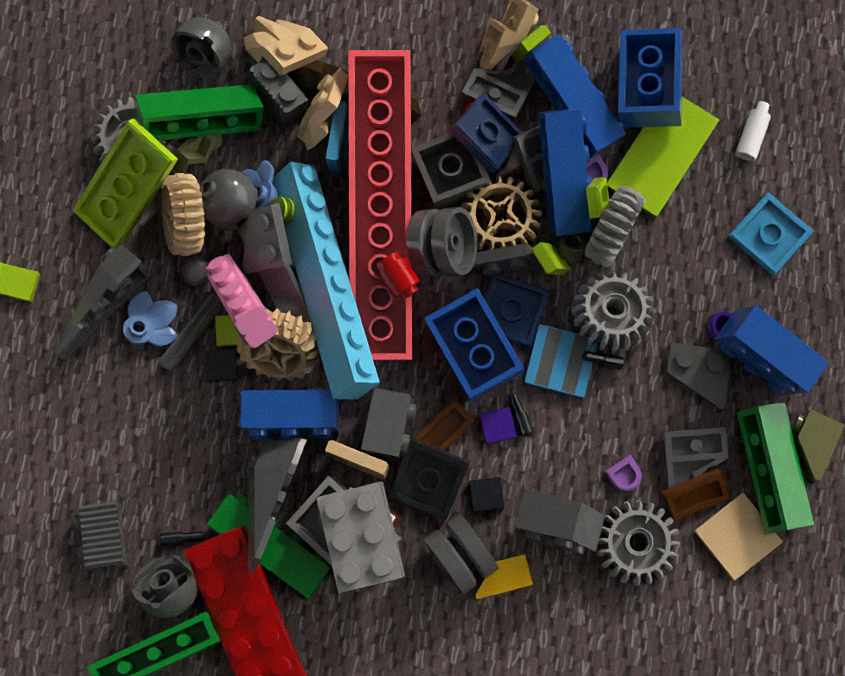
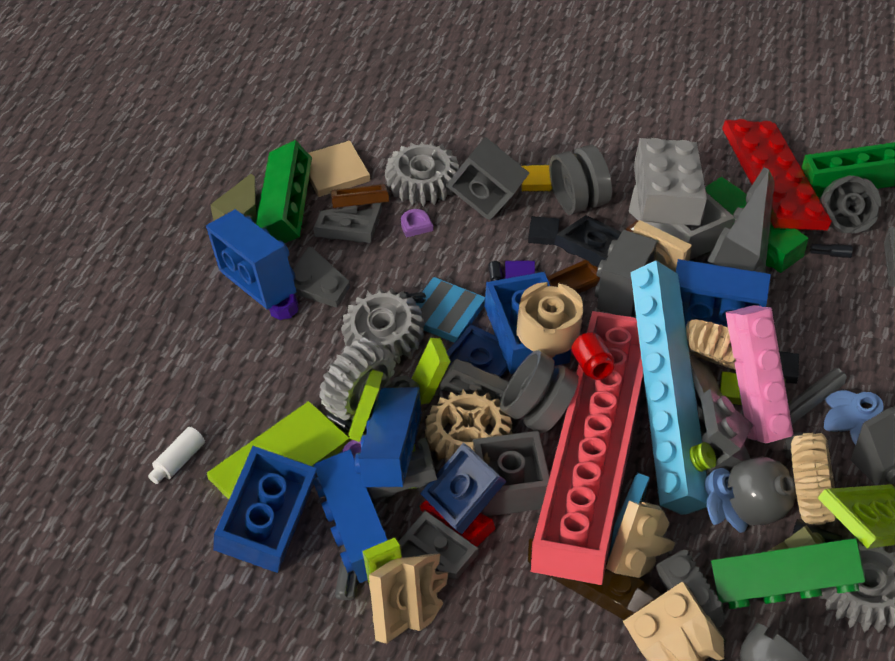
camera: 165 degrees left, 30 degrees down
(448, 293) = (549, 318): none -> tan brick
(770, 234) = (202, 370): dark azure tile -> none

